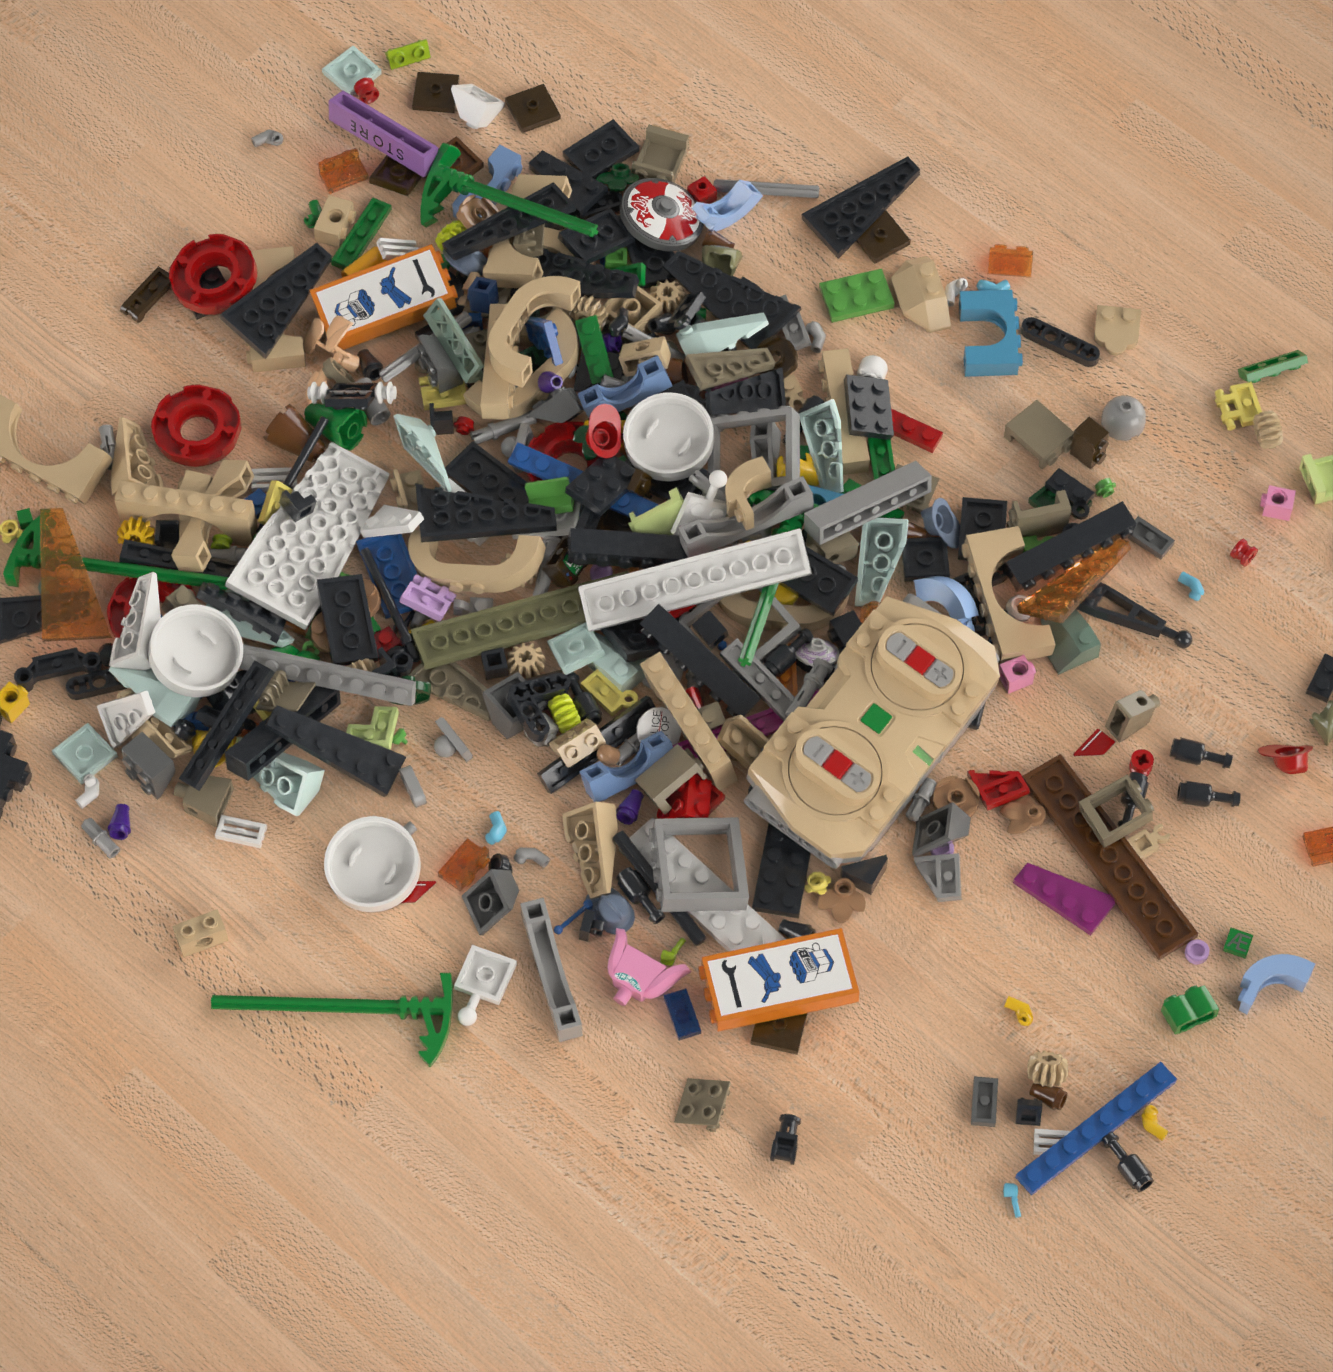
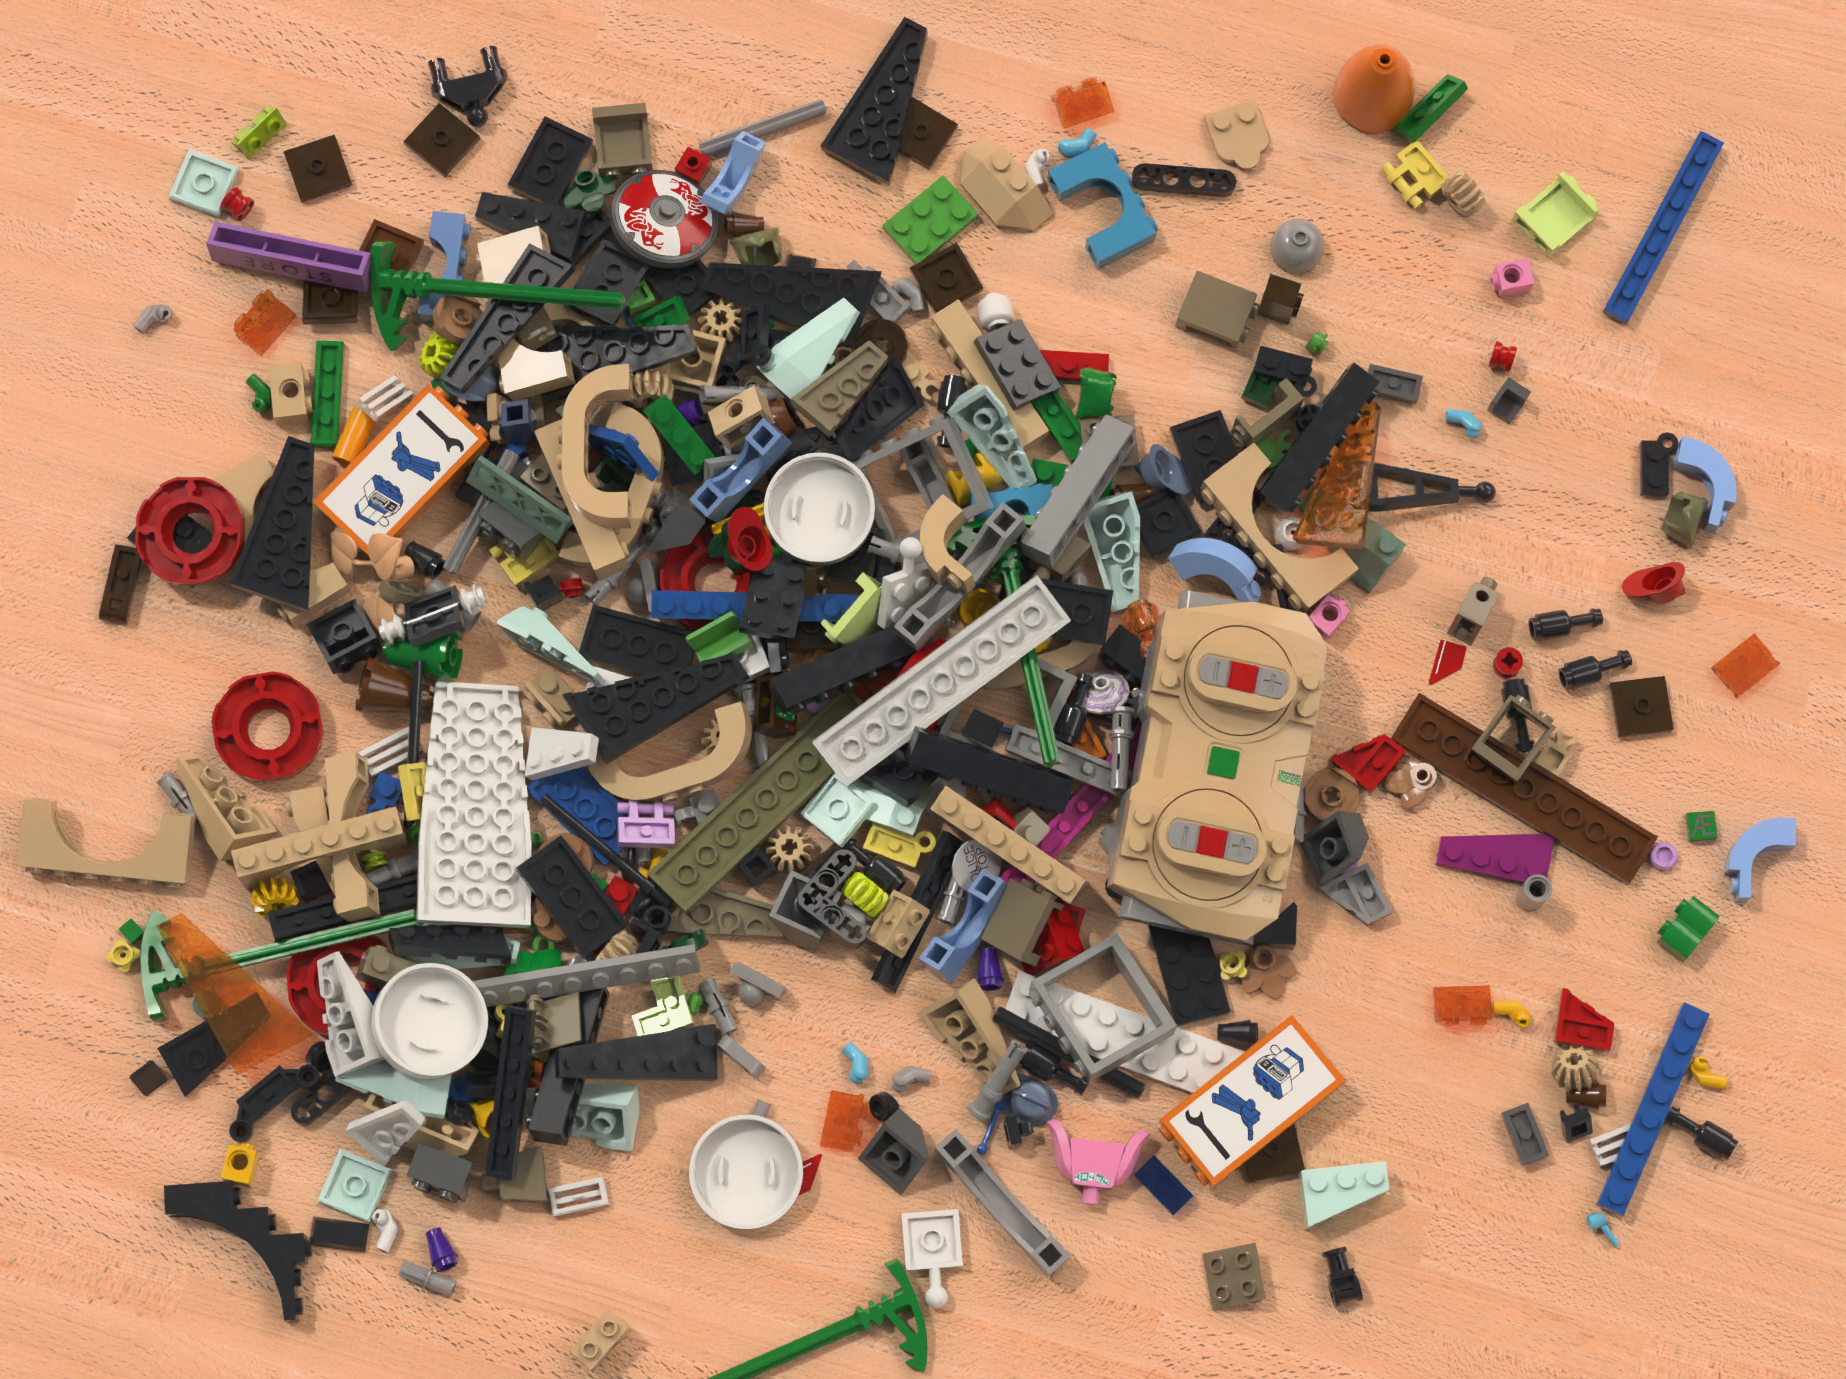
camera: 30 degrees left, 15 degrees up
(54, 781) = (339, 1234): none -> black tile
(283, 388) = (345, 637): none -> black plate
(296, 505) = (444, 784): black panel -> none
(415, 745) = (718, 1006): none -> light grey pin
(476, 105) = (375, 166): white slope -> none
(549, 382) = (654, 502): dark purple cone -> none
(570, 85) = (470, 91): none -> black connector
(585, 887) = (991, 1090): none -> light grey pin
(608, 754) = (938, 922): medium nougat piece -> none
(619, 323) = (693, 388): black arm -> none
(667, 957) = (1116, 1125): lime hand -> none
(741, 739) = (1076, 840): tan bracket -> none
(818, 1076) = (1338, 1189): none -> light aqua wedge
(849, 333) = (946, 278): none -> dark brown plate
(917, 448) = (1095, 393): none -> green hair
(983, 988) = (1462, 1004): none -> clear orange bracket
(1070, 1042) = (1581, 1025): none -> red wing
(1078, 927) = (1539, 884): none -> light grey pin
(1232, 839) = (1641, 706): none -> dark brown plate
(1233, 584) = (1508, 400): none -> dark grey panel
(1236, 332) = (1375, 89): none -> orange cylinder

